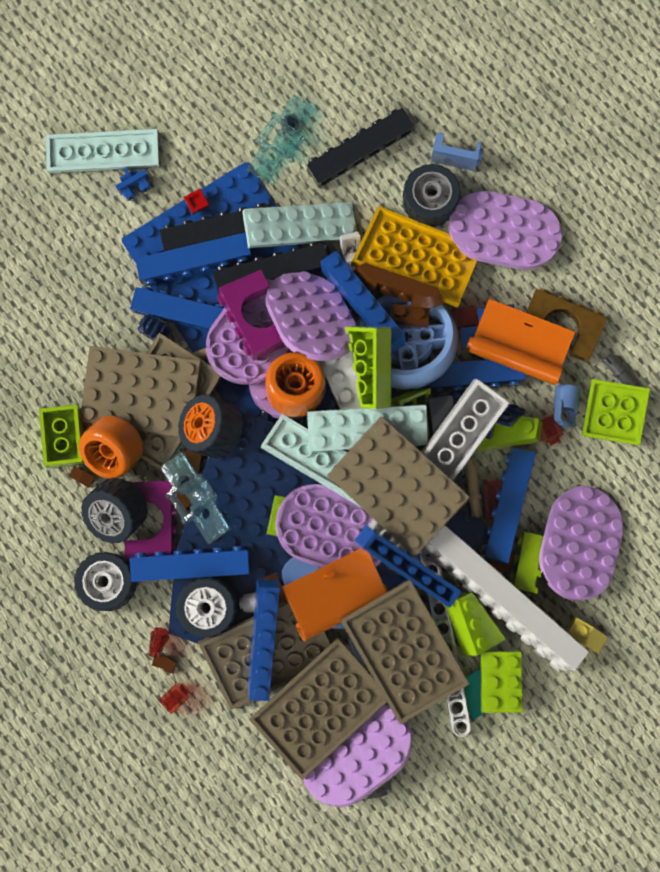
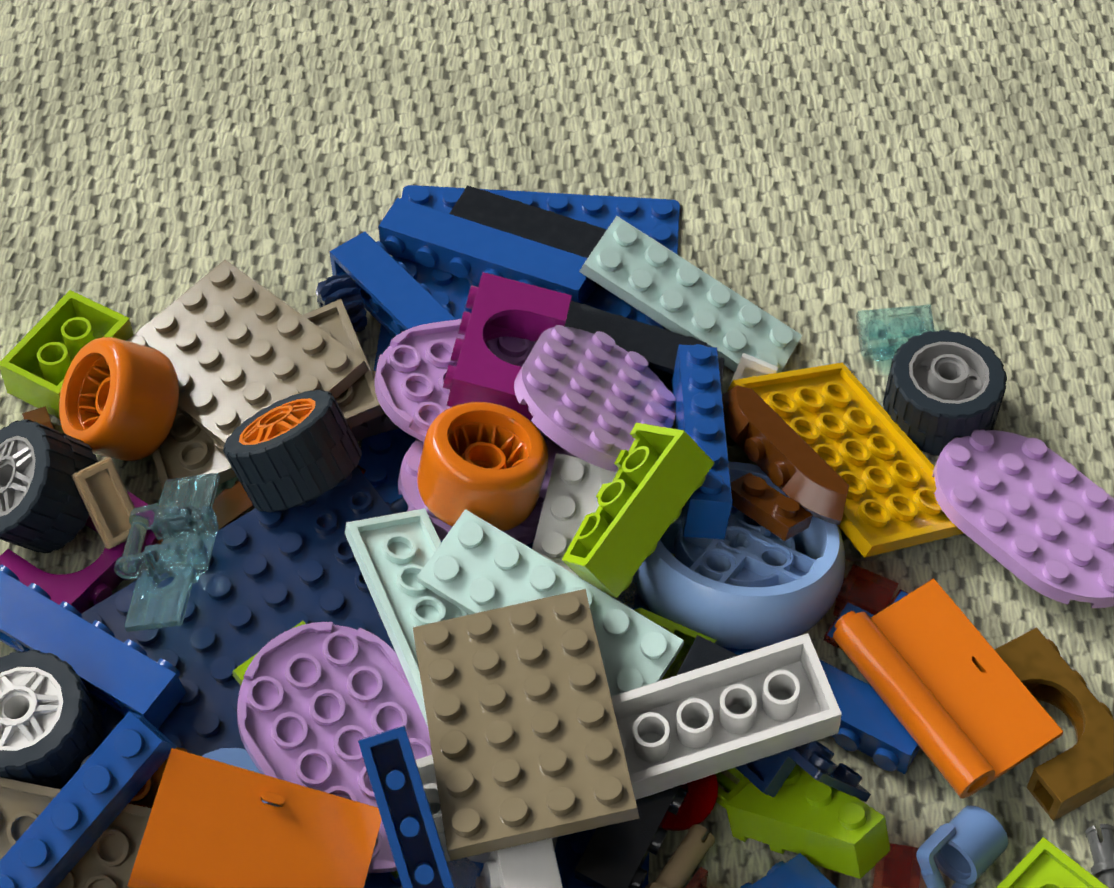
camera: 30 degrees right, 30 degrees down
(102, 151) = (480, 74): light aqua plate -> none
(131, 180) = (485, 126): blue hips -> none
(152, 497) = (105, 500): none -> tan tile
(196, 201) = (556, 194): red plate -> none
(286, 141) = (760, 207): clear light blue piece -> none
(360, 147) = (875, 275): black brick -> none
(390, 173) = (887, 329): none -> clear light blue bracket
(455, 156) = (1031, 364): medium blue panel -> none

